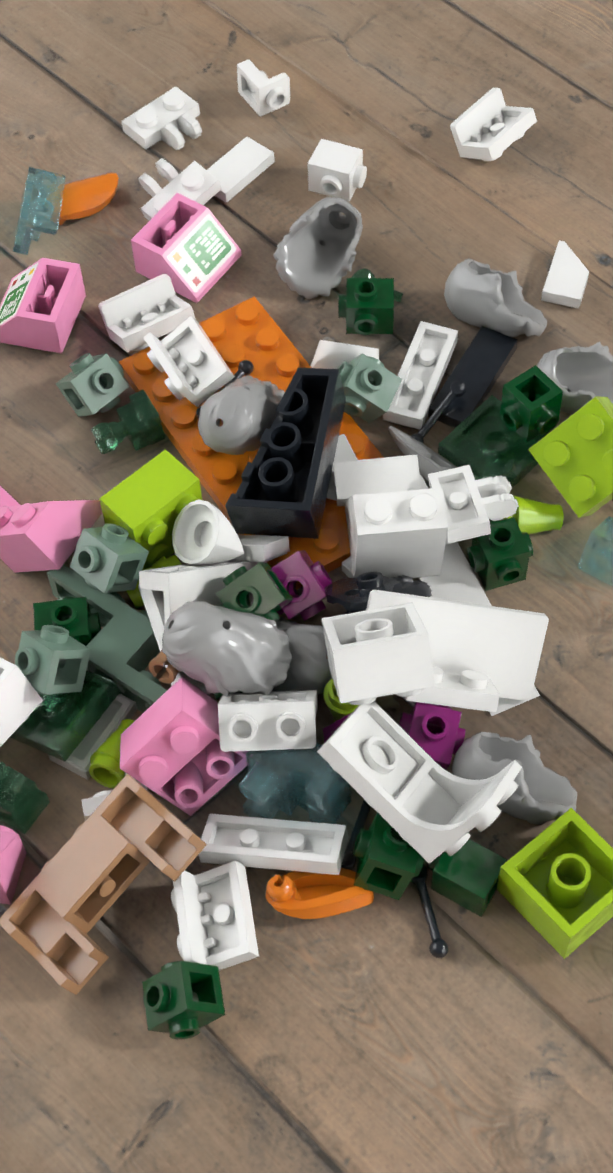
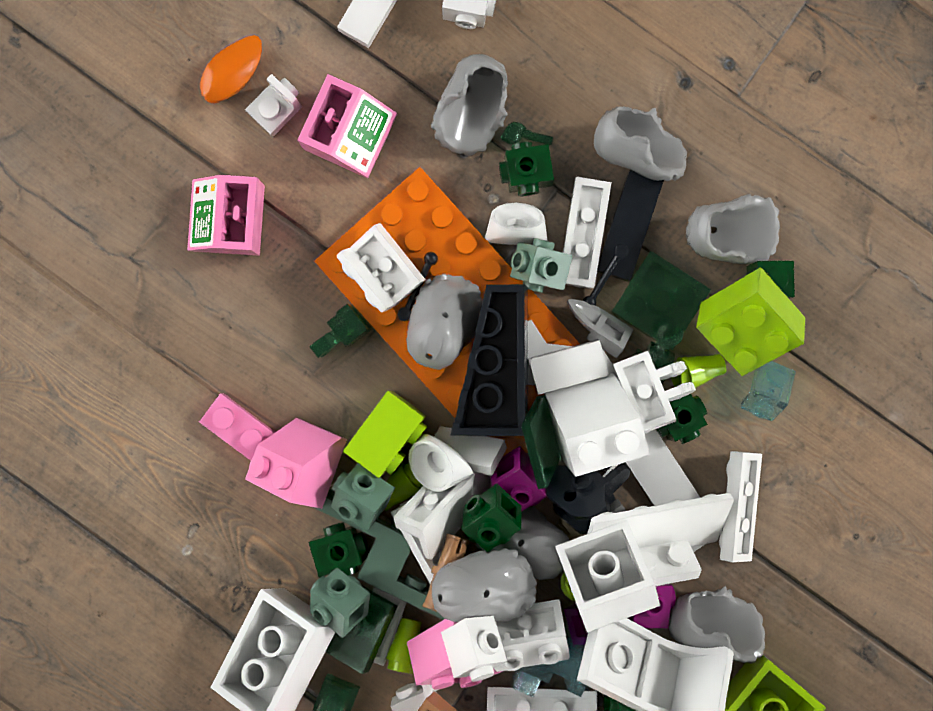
camera: 10 degrees left, 30 degrees up
(39, 207) = (197, 97): clear light blue bracket -> none
(93, 384) = (299, 297): sand green brick -> none
(114, 234) = (275, 105): none -> white bracket
(143, 310) = (327, 207): white bracket -> none
(192, 183) = (326, 55): white hinge -> none
(198, 690) = (474, 647): none -> white brick
(329, 534) = (541, 441): none -> clear green piece
(531, 404) = (704, 274): dark green brick -> none
(563, 660) = (739, 528): none -> white plate
(565, 278) = (697, 96): white tile -> none

